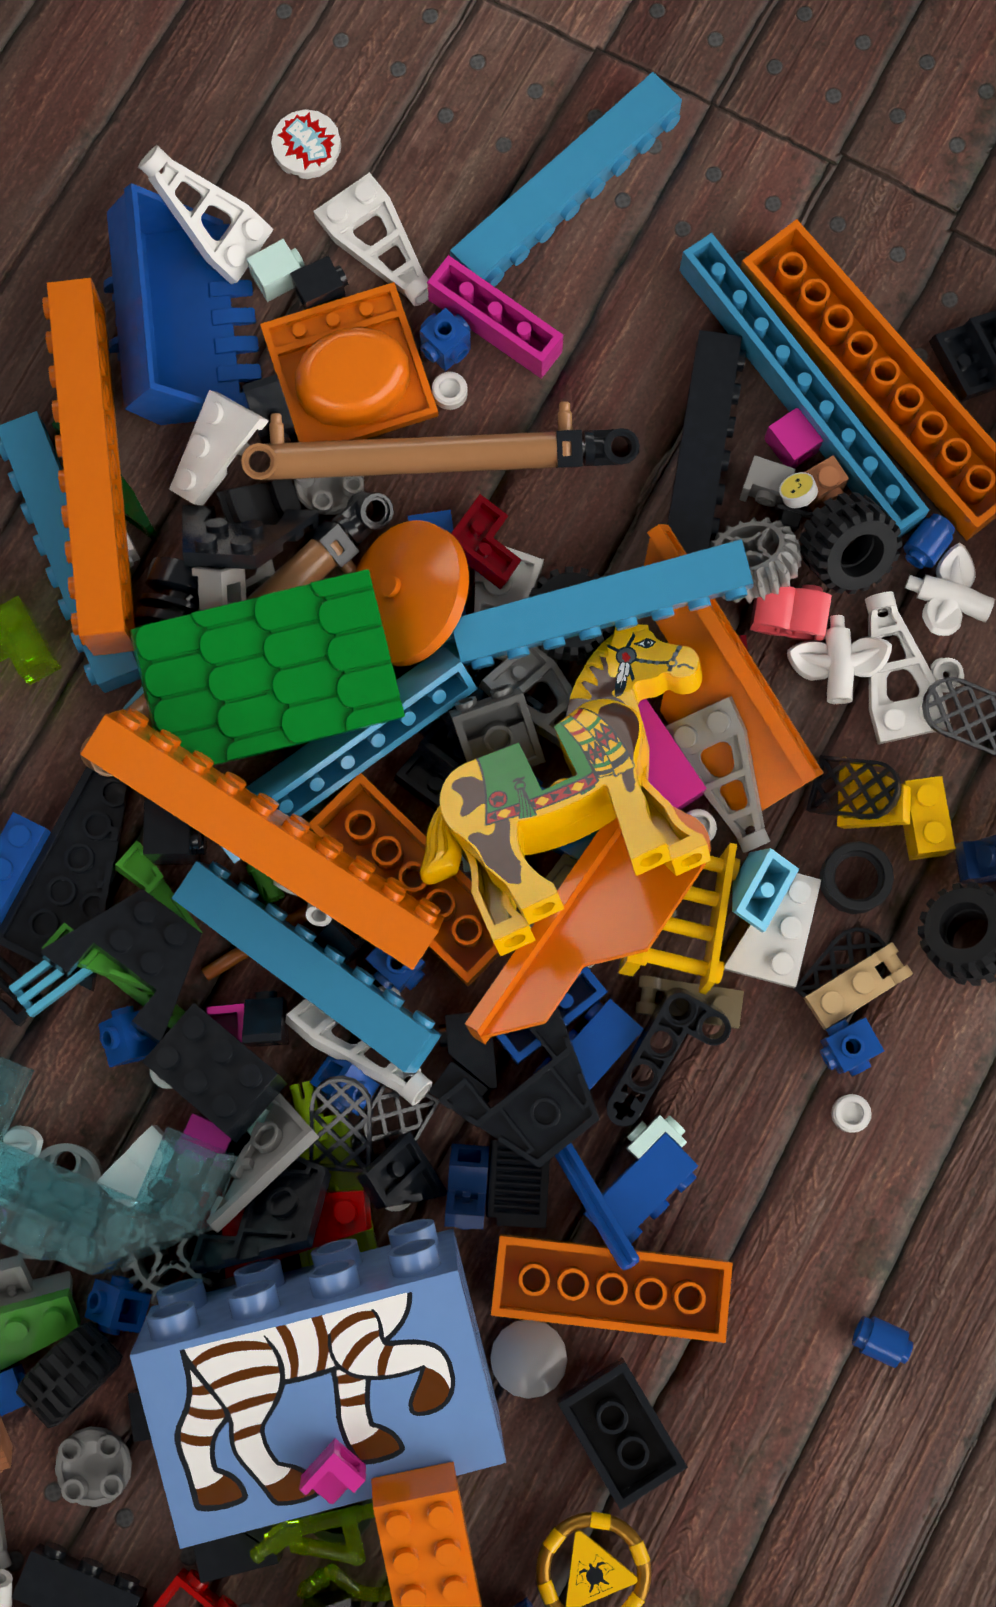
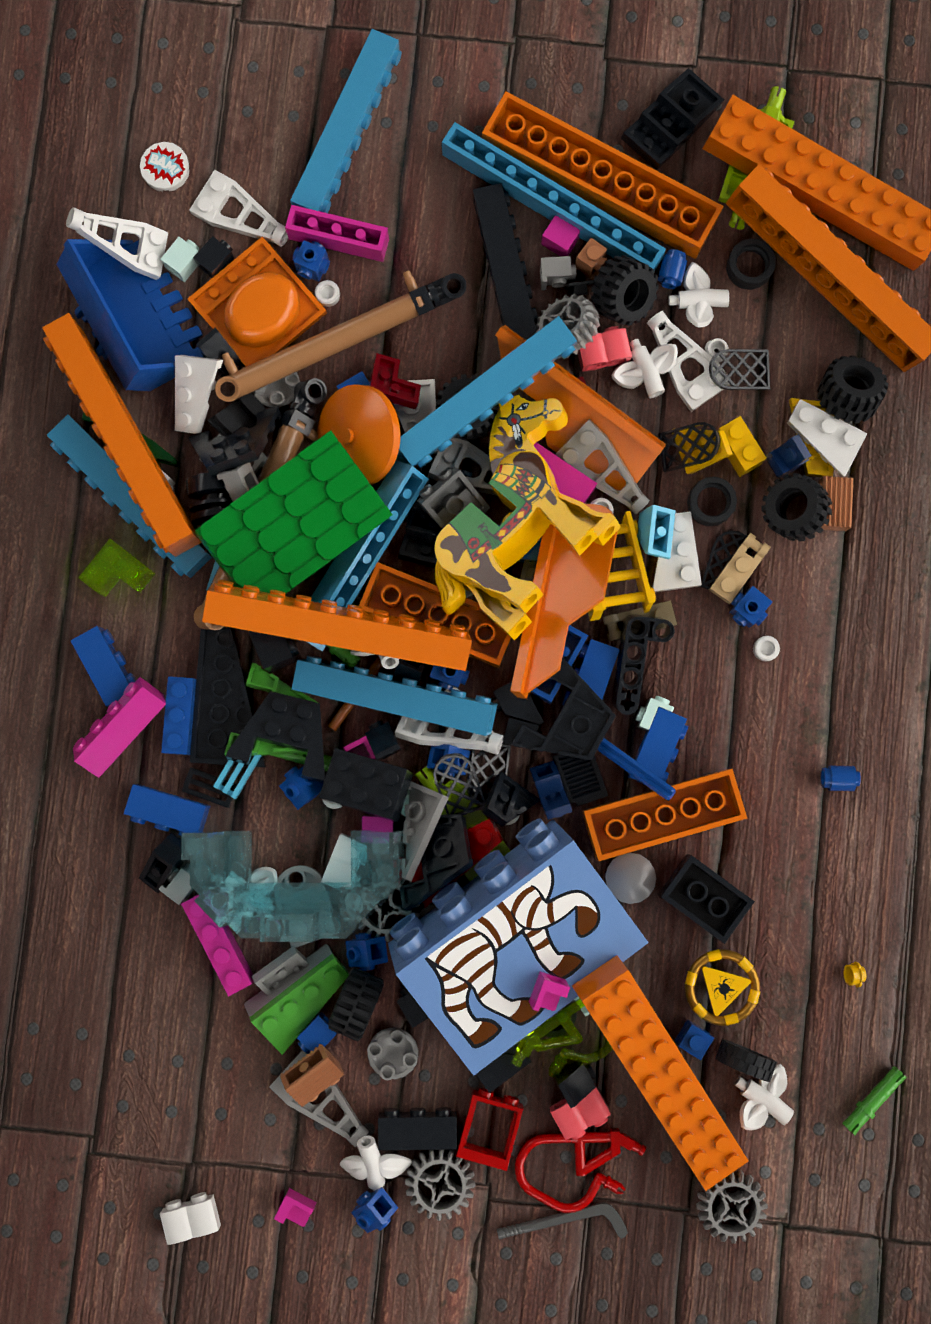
camera: 20 degrees left, 5 degrees up
(798, 490) = (578, 269): tile -> none

